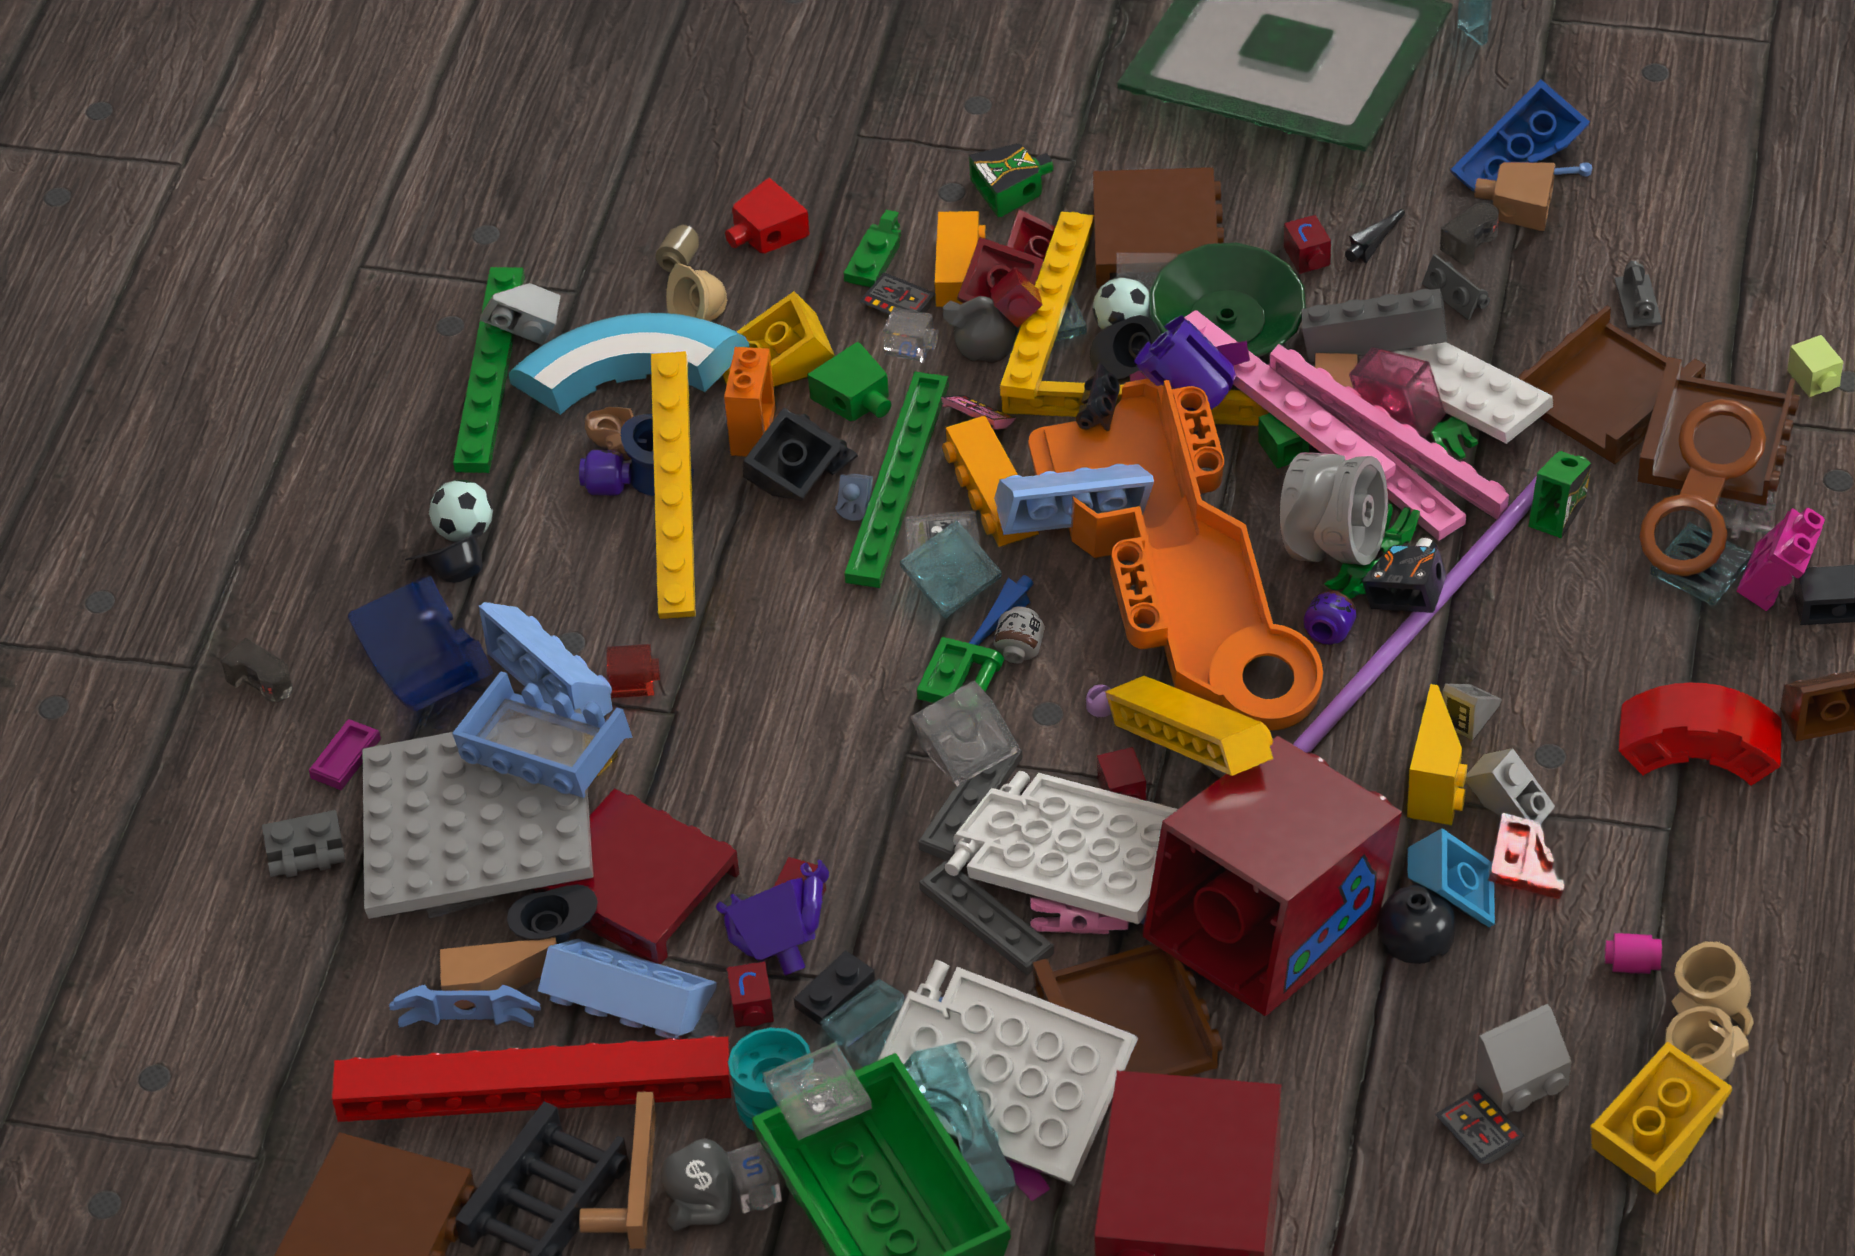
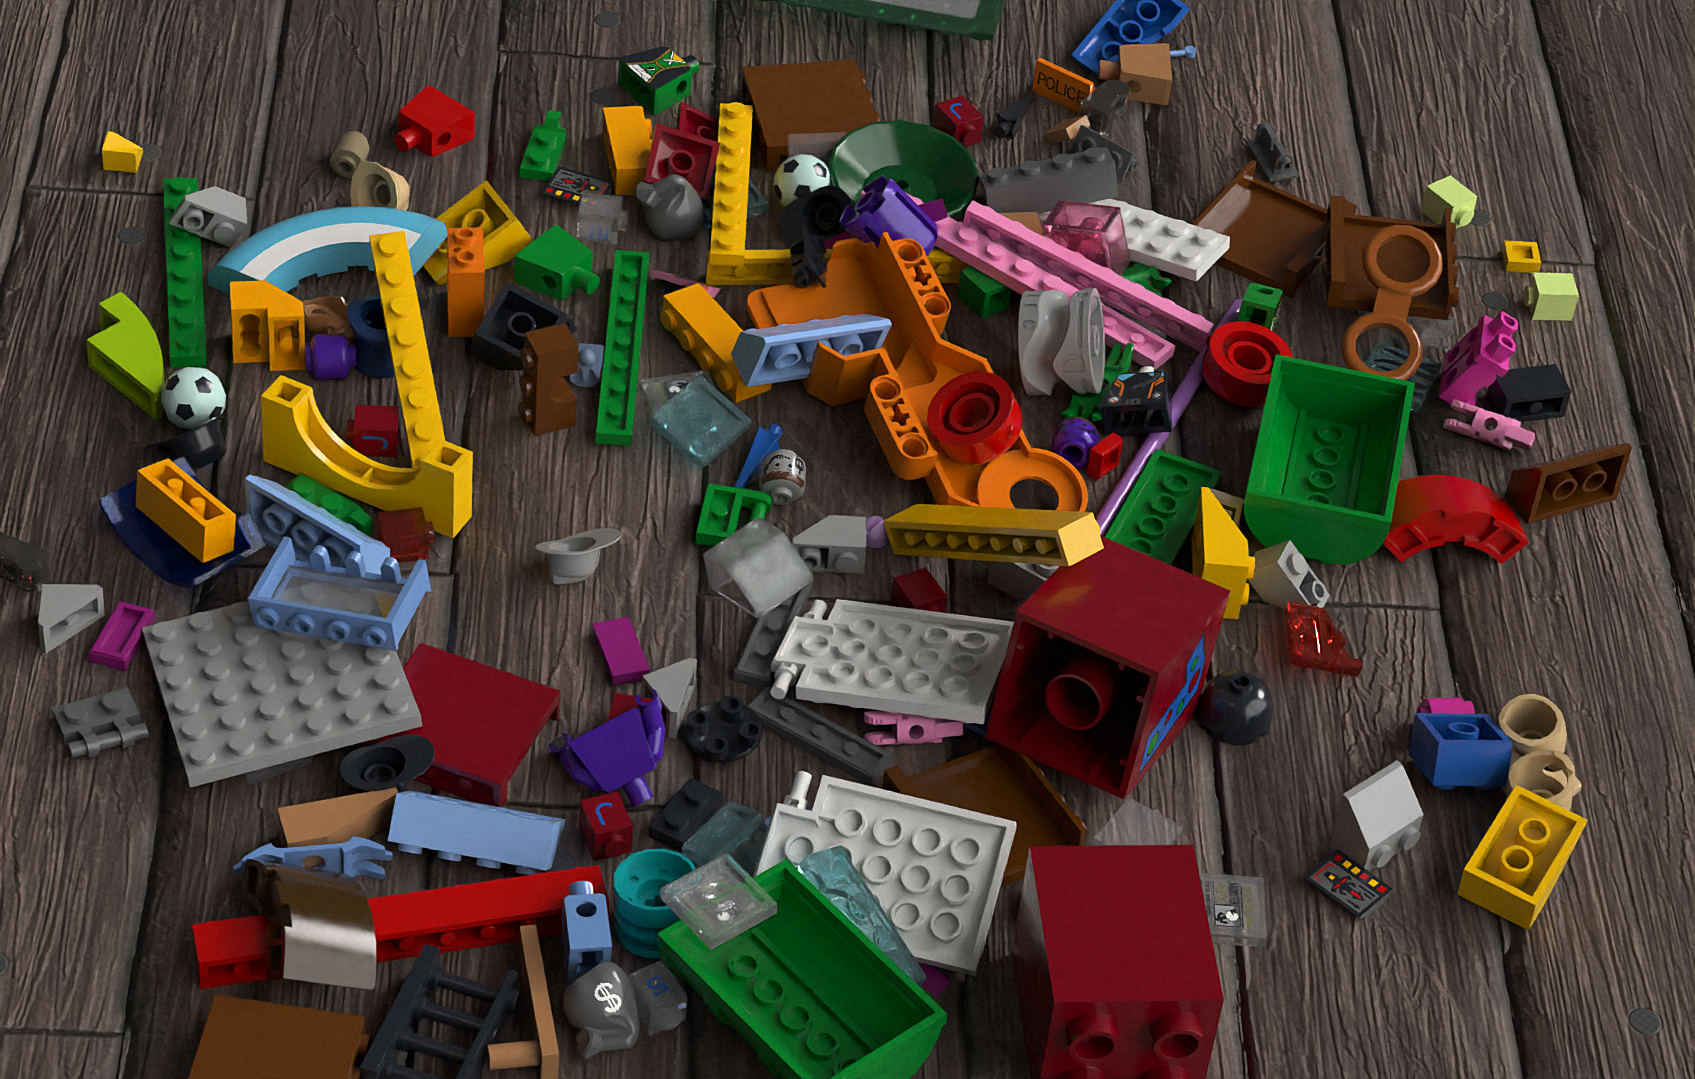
camera: 20 degrees left, 5 degrees down
(294, 727) = (67, 611): none -> light grey slope
(413, 455) = (128, 353): none -> lime slope
(422, 632) = (185, 510): none -> light orange brick
(447, 1071) = (317, 924): none -> dark brown panel
(456, 237) = (120, 154): none -> yellow slope
(545, 437) = (267, 326): none -> light orange piece
(556, 570) = (302, 442): none -> yellow arch
(572, 632) = (332, 502): none -> green hinge
(630, 556) = (374, 430): none -> dark red brick
(695, 1103) = (584, 930): none -> medium blue torso
(792, 705) = (577, 555): none -> light grey piece
(801, 516) = (547, 398): none -> reddish brown arch
(814, 809) = (620, 650): none -> magenta tile
(849, 860) = (674, 689): none -> light grey slope
(892, 903) = (723, 730): none -> black dish
(1016, 297) = (705, 175): dark red brick -> none
(1049, 713) = (834, 545): none -> light grey slope
(1204, 577) = (965, 402): none -> red piece
(1280, 1051) = (1138, 826): none -> clear piece
(1344, 1140) = (1235, 909): none -> clear tile
(1357, 635) = (1104, 456): none -> red tile
(1389, 710) = (1163, 506): none -> green plate
(1422, 256) = (1066, 129): none -> medium nougat tile
(1429, 203) = (1061, 85): none -> orange panel
(1454, 873) = (1253, 650): dark azure slope -> none
(1535, 523) = (1241, 362): none -> red piece
(1578, 657) = (1327, 460): none -> green container
(1631, 993) = (1460, 750): none -> blue brick
(1795, 639) = (1504, 436): none -> bright pink hinge

